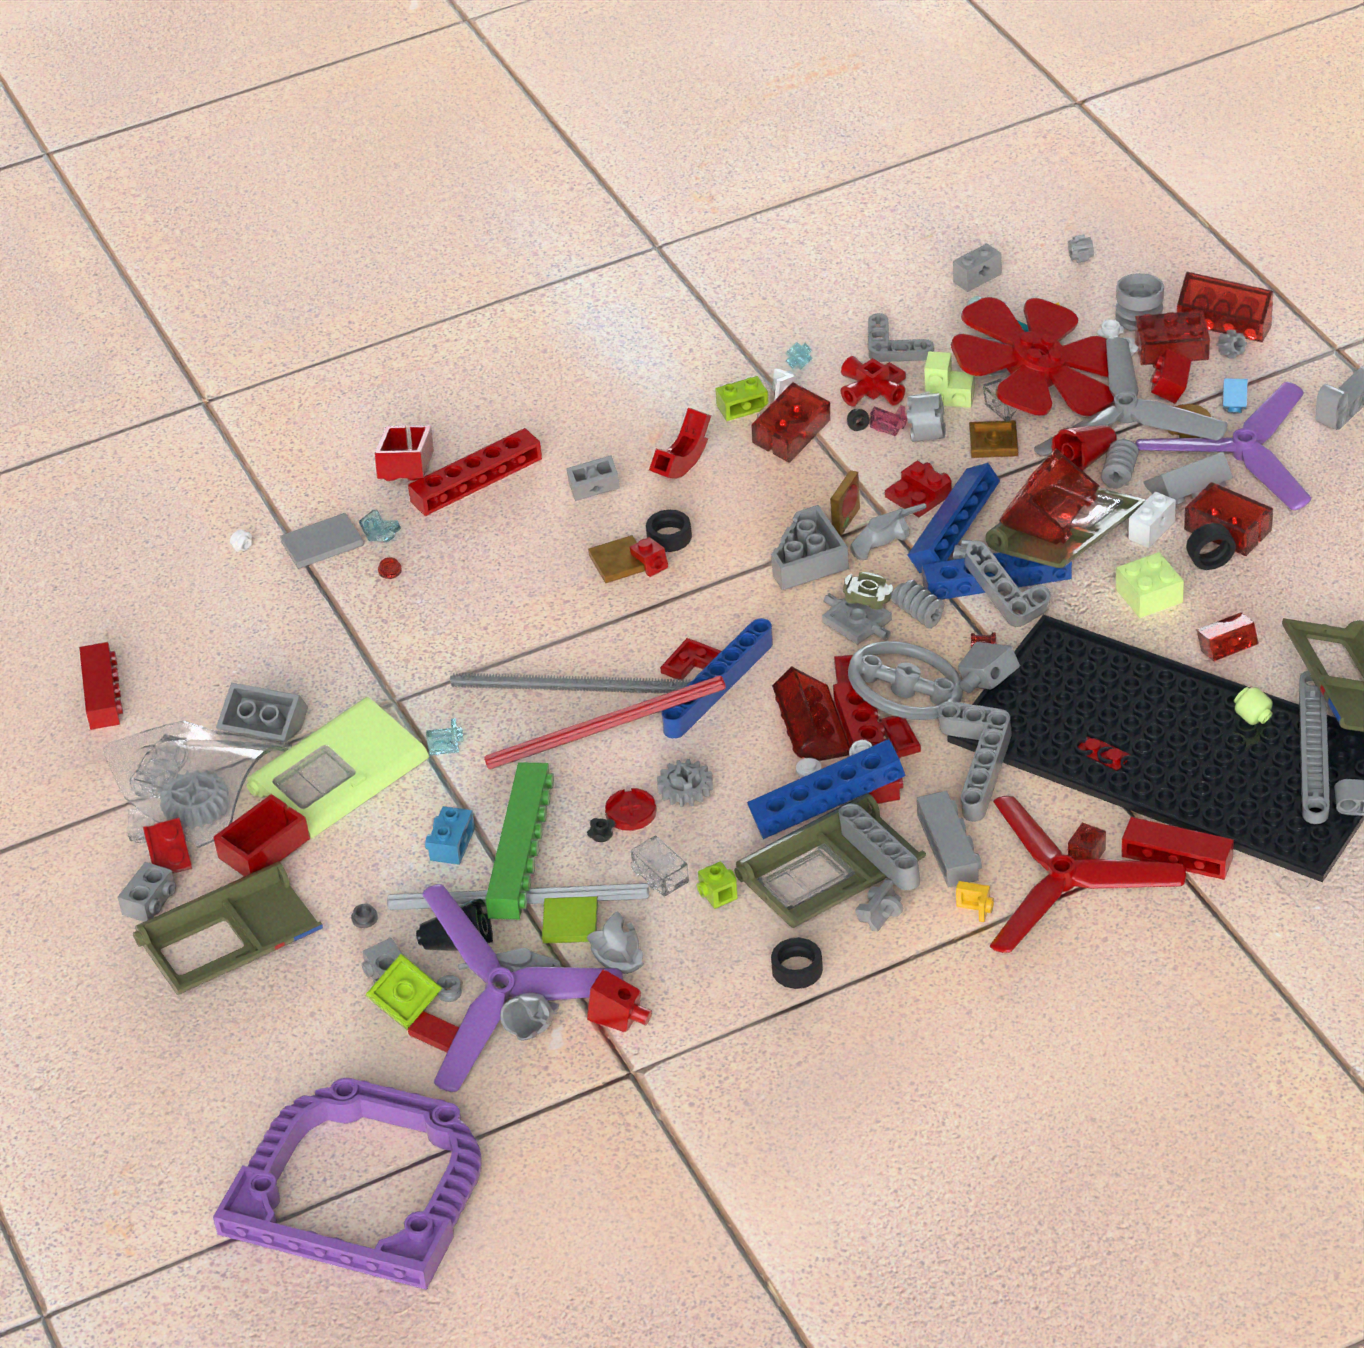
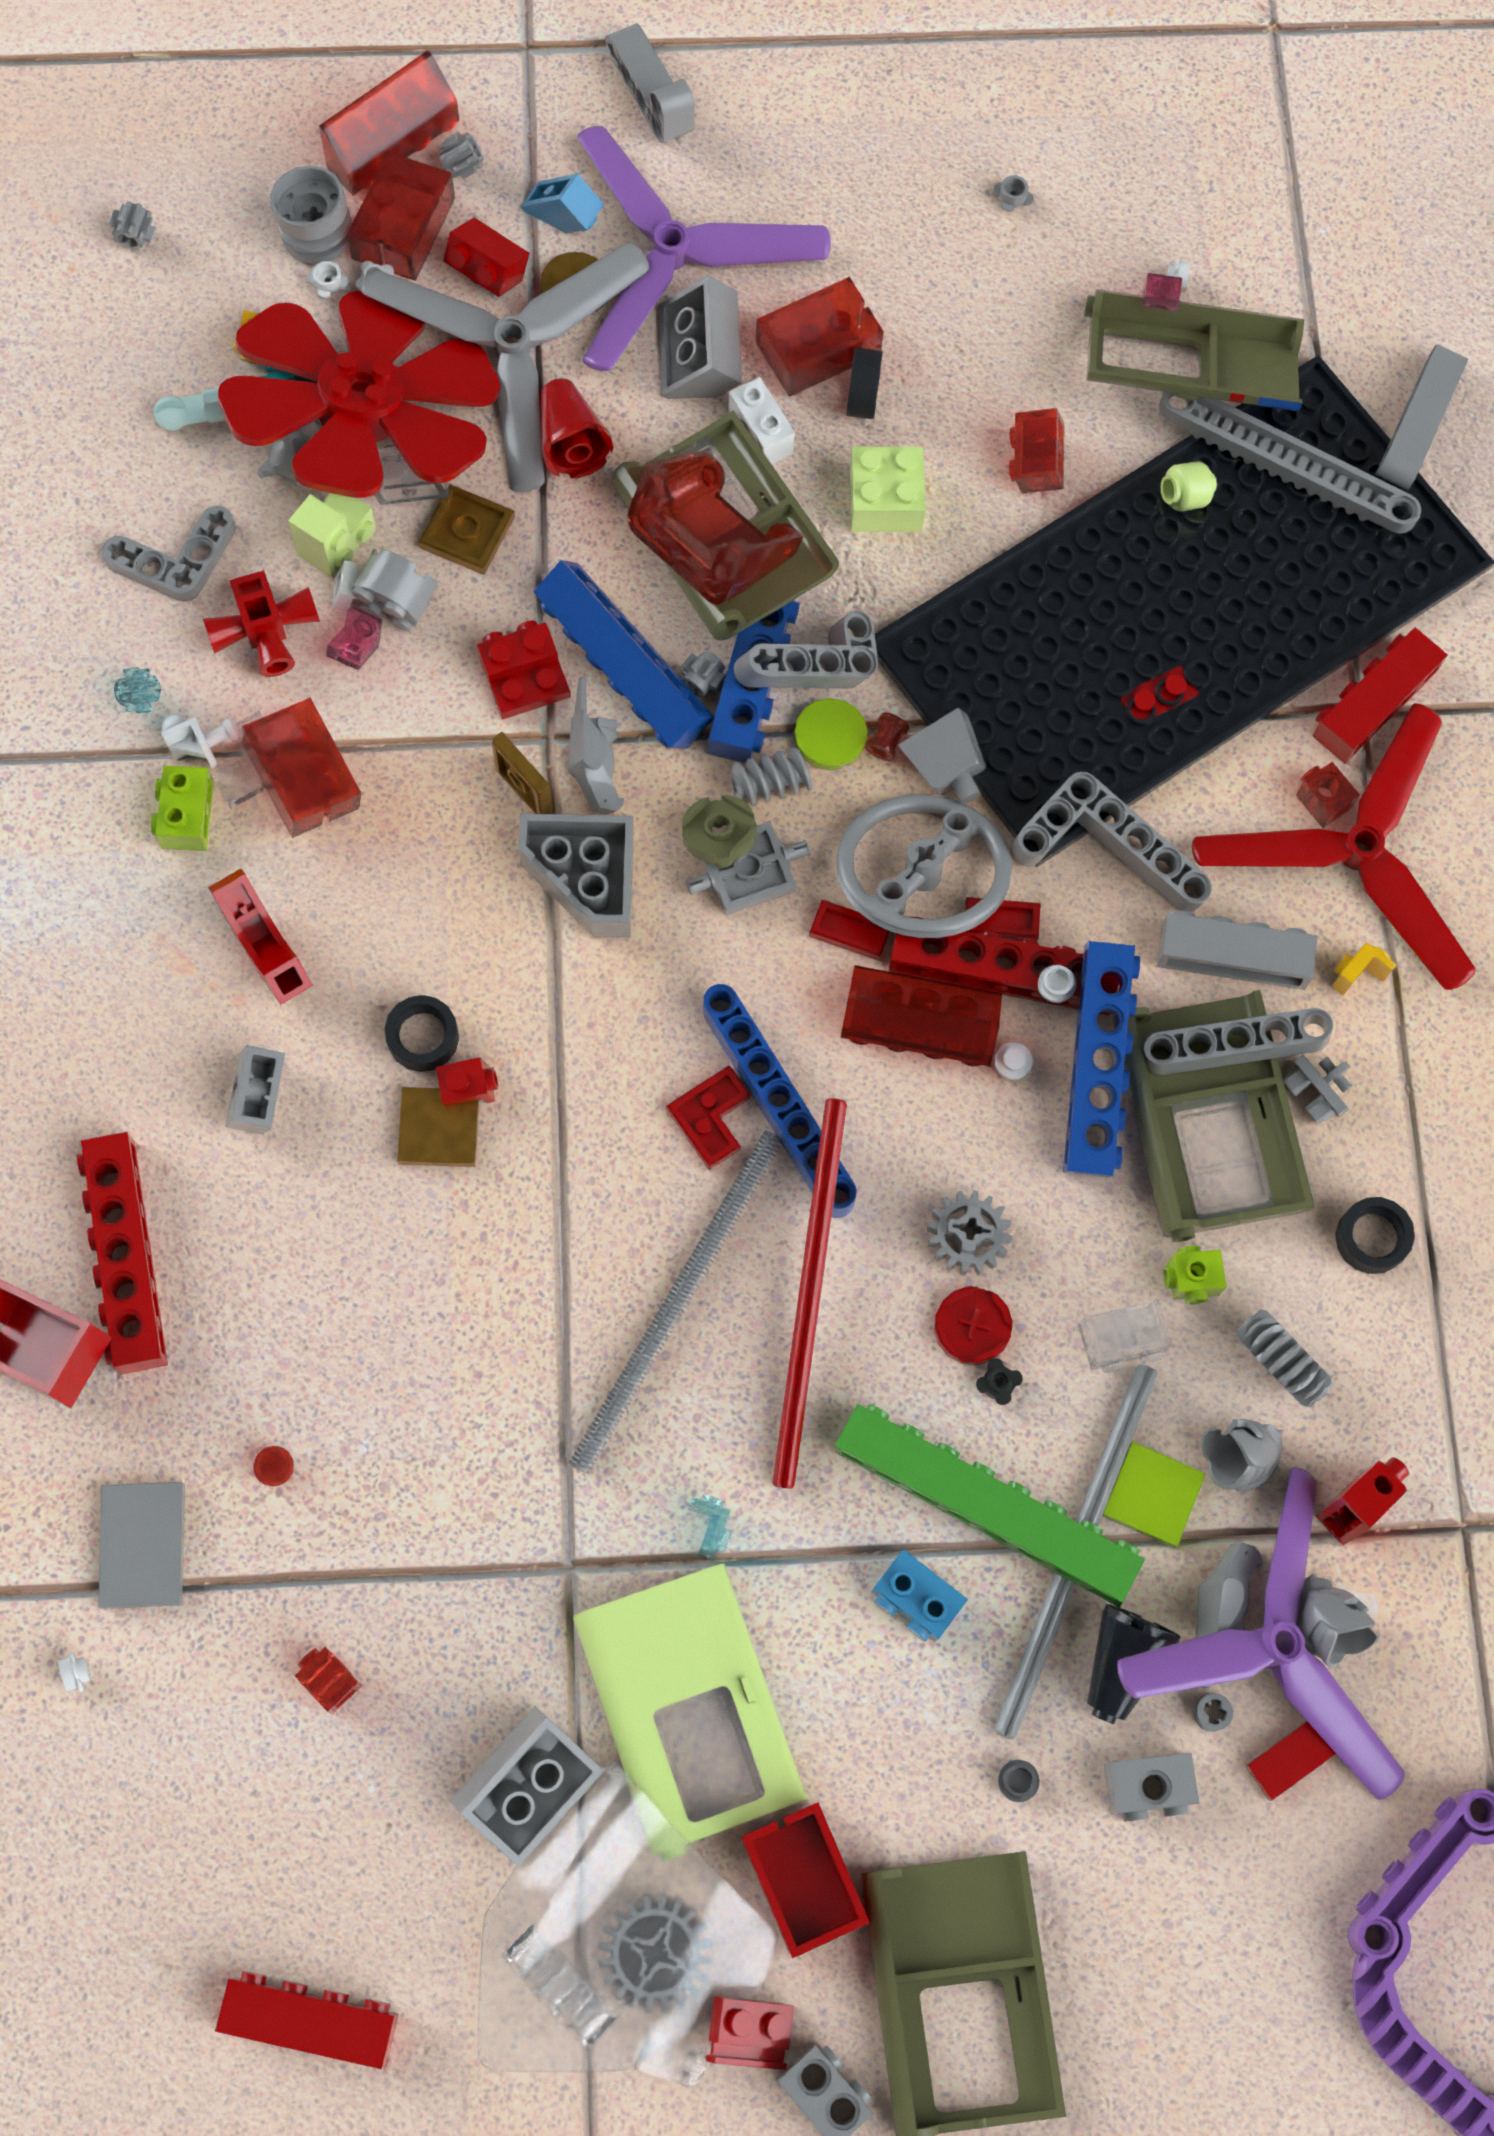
camera: 75 degrees left, 30 degrees up
(282, 627) = (327, 1679): none -> clear red brick
(377, 529) = (175, 1446): clear light blue bracket -> none
(403, 991) = (1219, 1782): lime tile -> none
(683, 931) = (1284, 1358): none -> light grey gear
(854, 415) = (327, 678): pearl dark grey plate -> none
(969, 619) = (830, 734): none -> lime tile
(977, 267) = (87, 371): light grey brick -> none
(1119, 463) = (624, 404): light grey piece -> none

